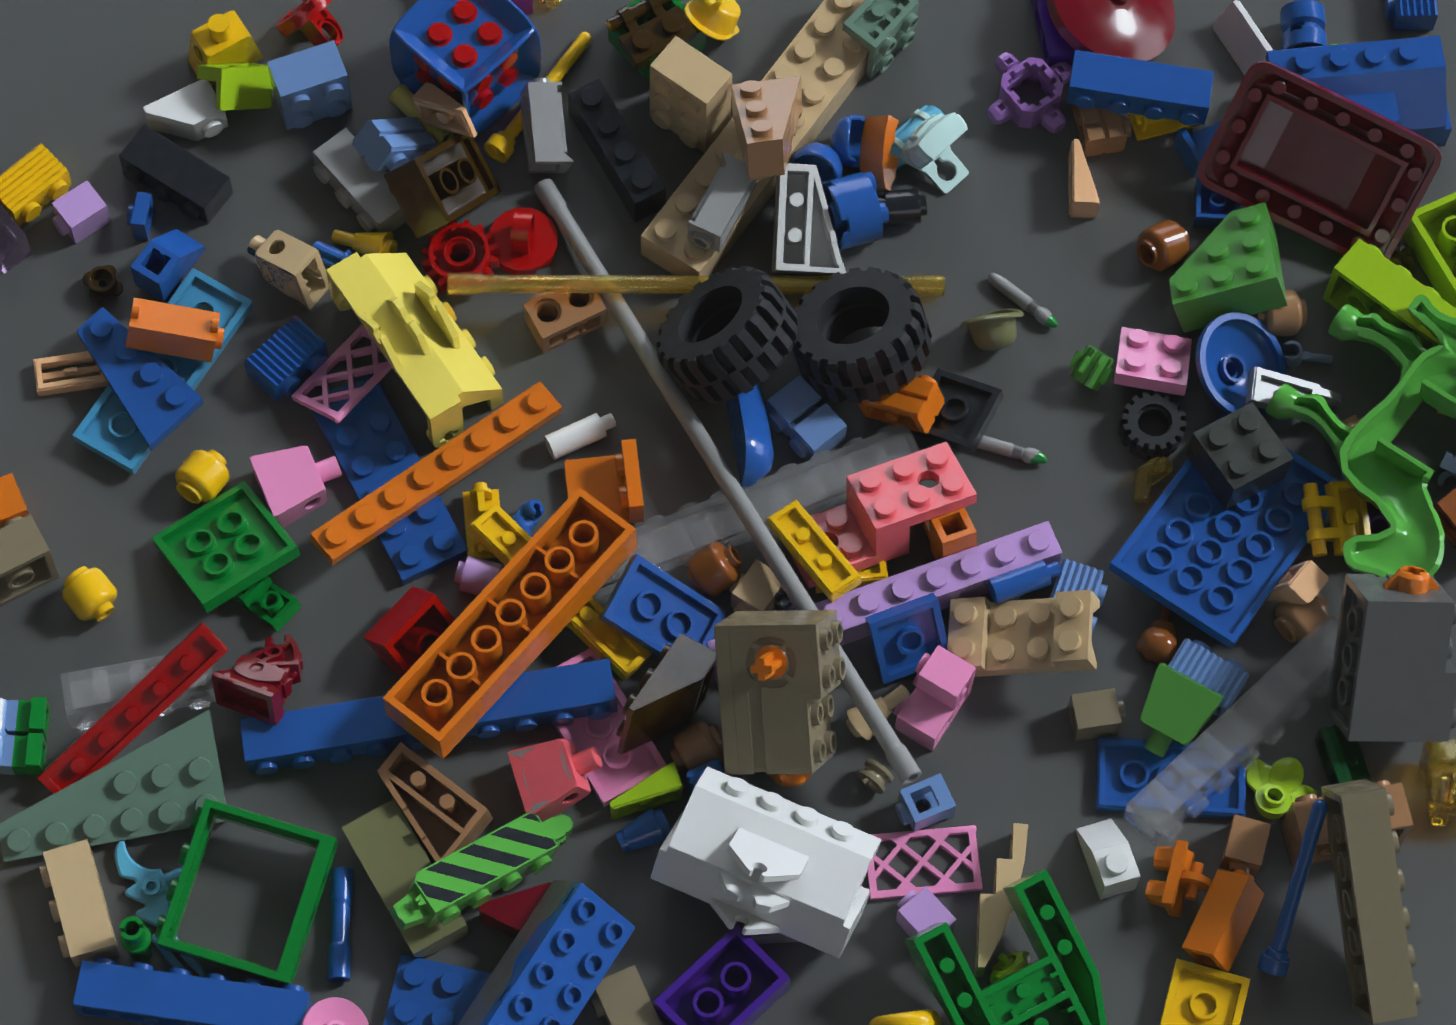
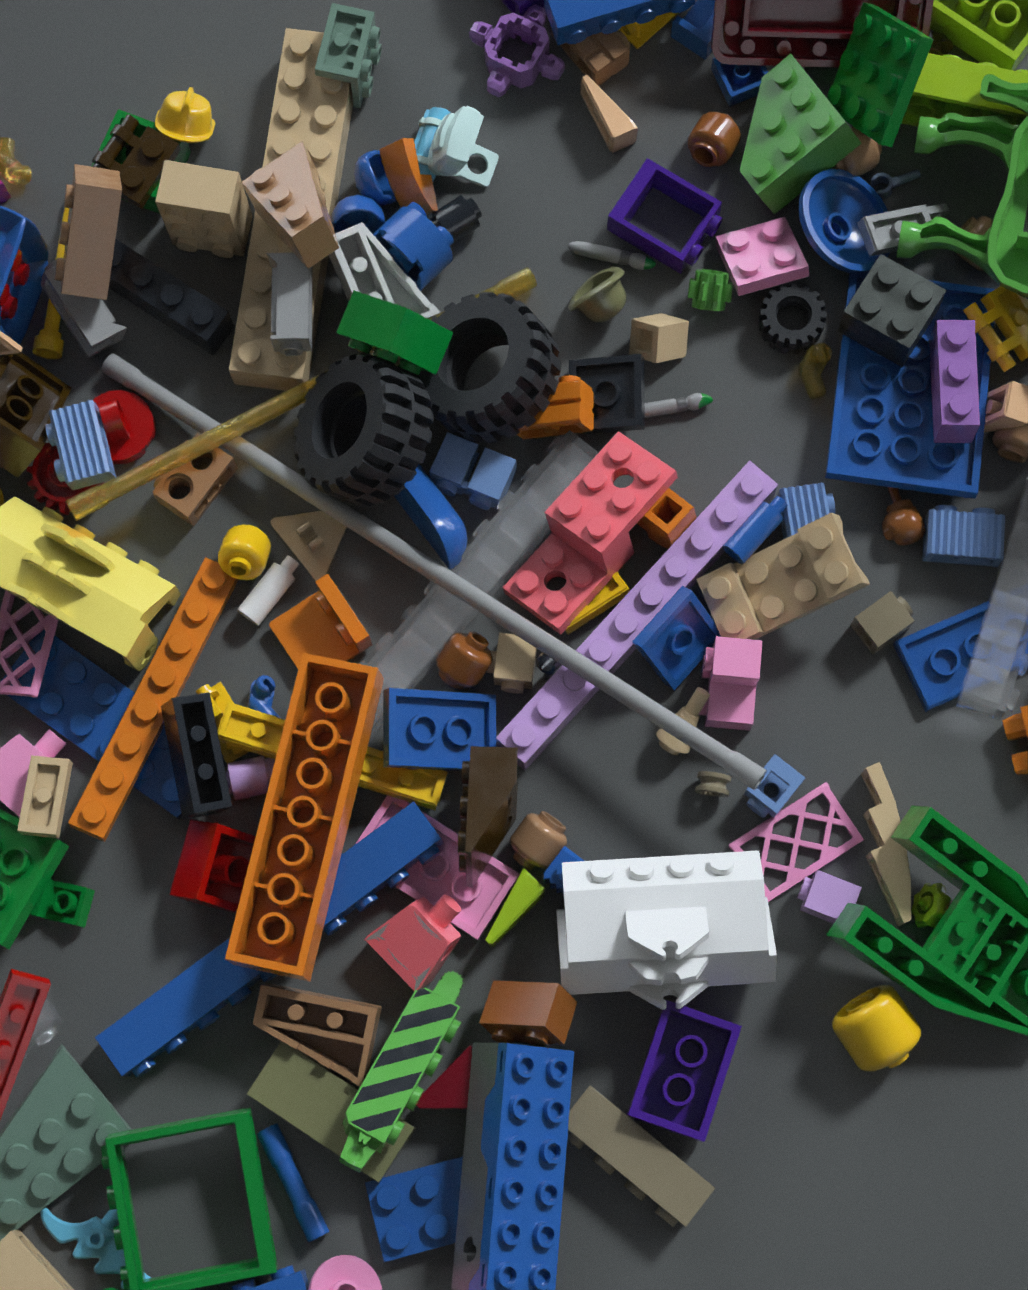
camera: 20 degrees left, 10 degrees up
(260, 681) = (96, 987): dark red piece -> none
(302, 503) = (45, 796): none -> tan plate
(445, 532) = (196, 755): none -> black brick
(483, 236) = (81, 445): none -> medium blue brick
(574, 391) = (244, 552): none -> yellow head
(581, 66) = (89, 232): none -> medium nougat wedge
(616, 877) = (528, 1013): none -> dark orange brick
(638, 410) = (311, 538): none -> tan piece
(644, 831) = (529, 945): blue cone -> none
(776, 691) = (592, 757): dark tan piece -> none
(794, 266) = (394, 333): none -> green brick
(814, 550) = (550, 599): yellow tile -> none
(1027, 386) = (659, 337): none -> tan panel
(1071, 258) = (656, 176): none -> dark purple window
(1108, 858) = (962, 752): white slope -> none
(1176, 708) = (959, 582): bright green torso -> none
(1261, 539) = (954, 381): none -> medium lavender brick
(1329, 252) = (878, 73): none -> green plate

